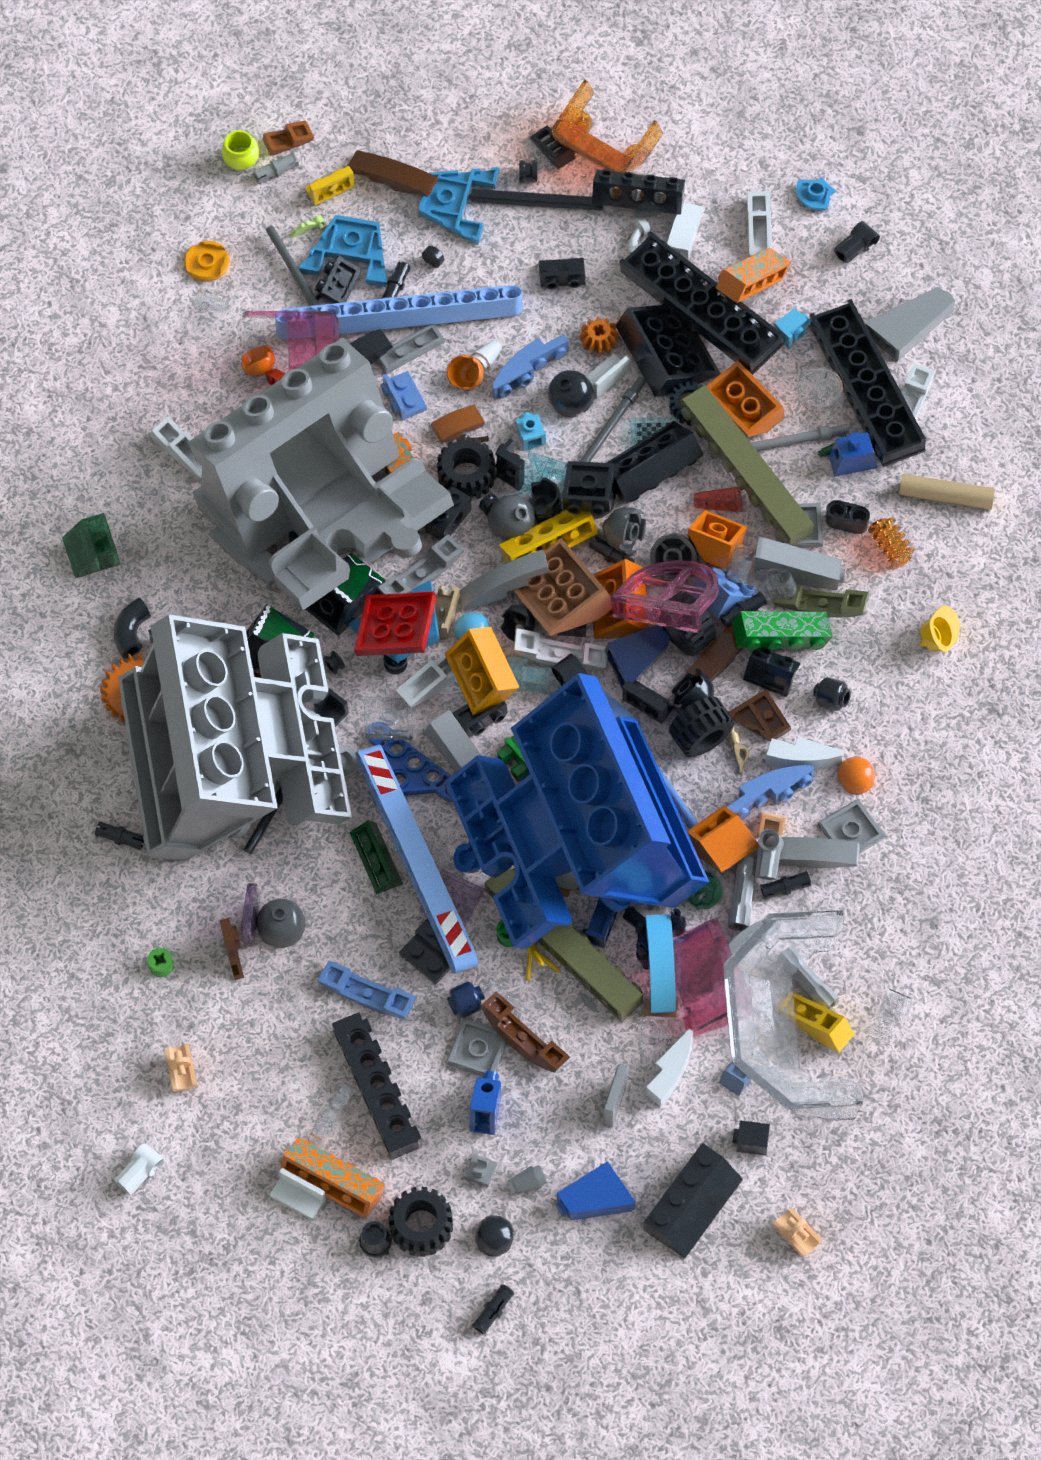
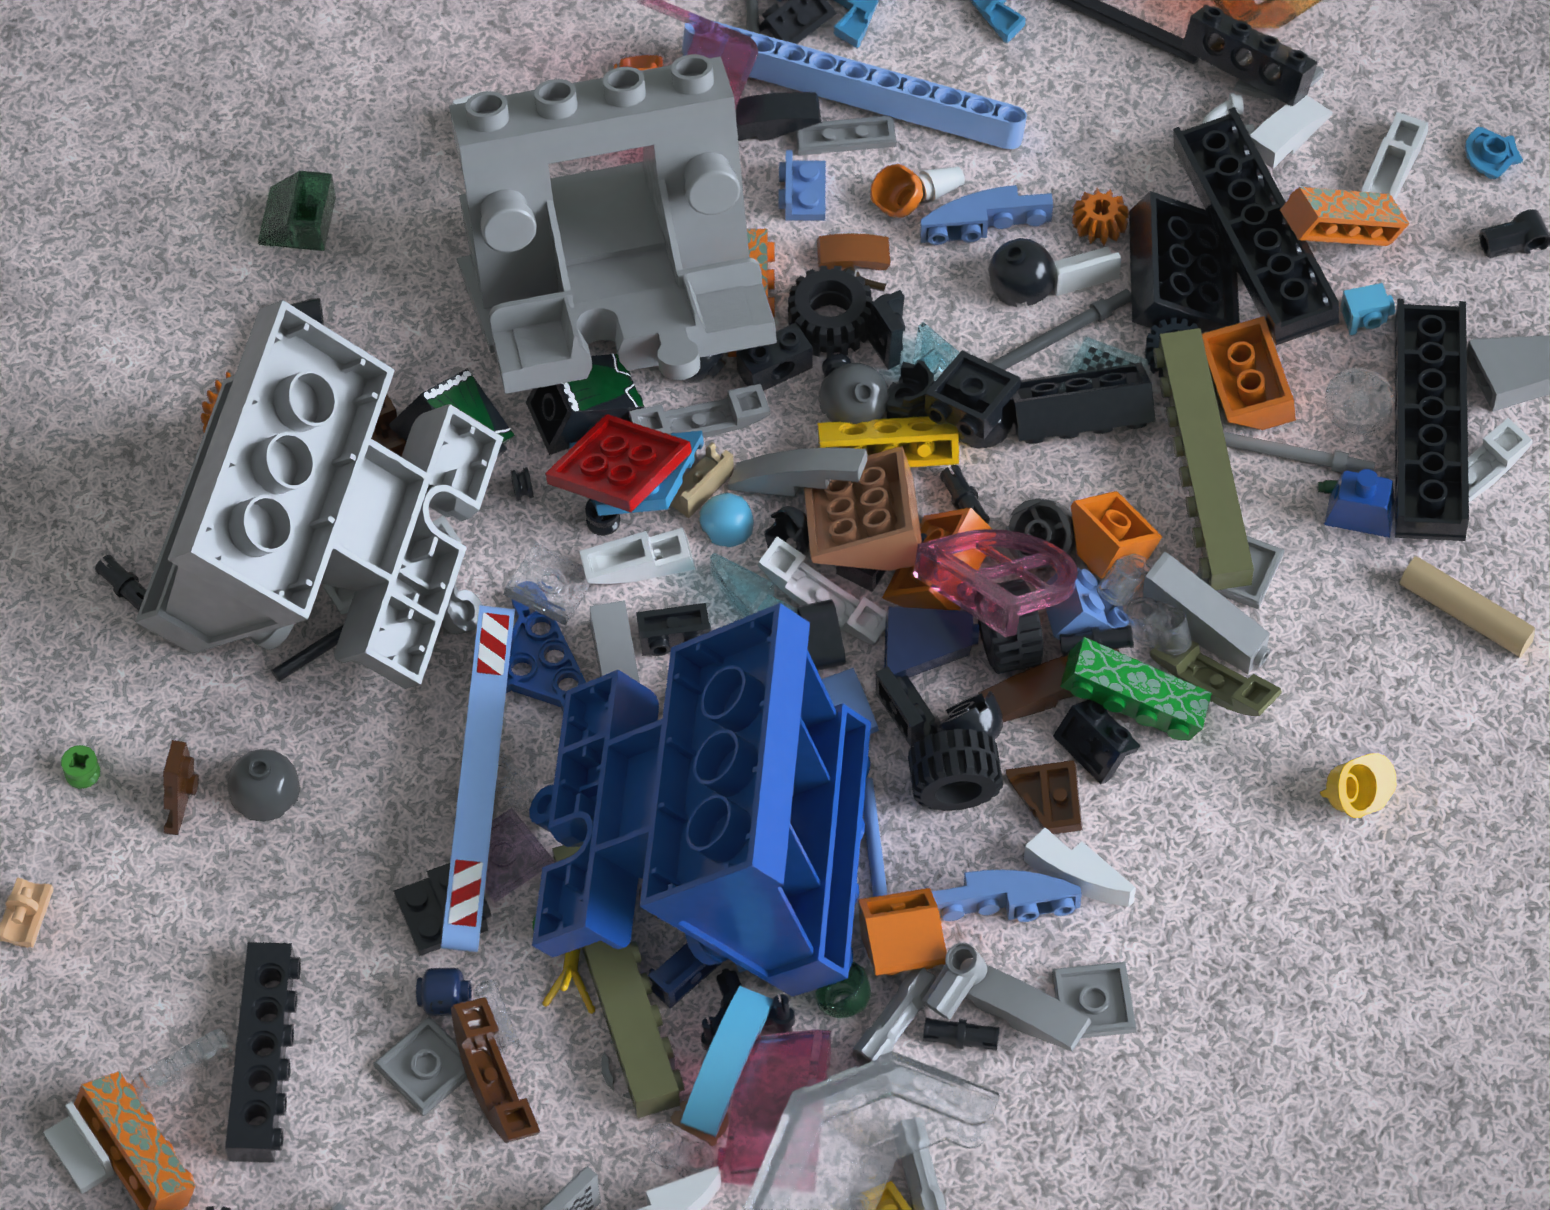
camera: 25 degrees right, 5 degrees down
(250, 914) = (222, 752): clear purple tile -> none
(332, 707) = (483, 539): black panel -> none
(365, 992) = (319, 922): medium blue slope -> none
(378, 856) = (440, 755): dark green slope -> none
(396, 281) = (873, 47): black pin -> none
(433, 256) = (937, 33): black tile -> none
(481, 669) = (701, 569): light orange slope -> none
(485, 1103) = (388, 1141): blue torso -> none
(530, 431) = (943, 294): medium azure brick -> none
(562, 273) = (1096, 120): black bracket -> none
(624, 525) = (998, 467): dark grey cylinder -> none
(721, 499) = (1147, 488): clear red slope -> none
(737, 748) = (995, 823): tan hand -> none
(772, 822) = (989, 943): light nougat slope -> none
(832, 694) = (1163, 806): black head -> none
(848, 513) = (1314, 579): black beam -> none
(856, 775) = (1139, 929): orange hair -> none
(891, 541) = (1355, 640): clear orange piece -> none

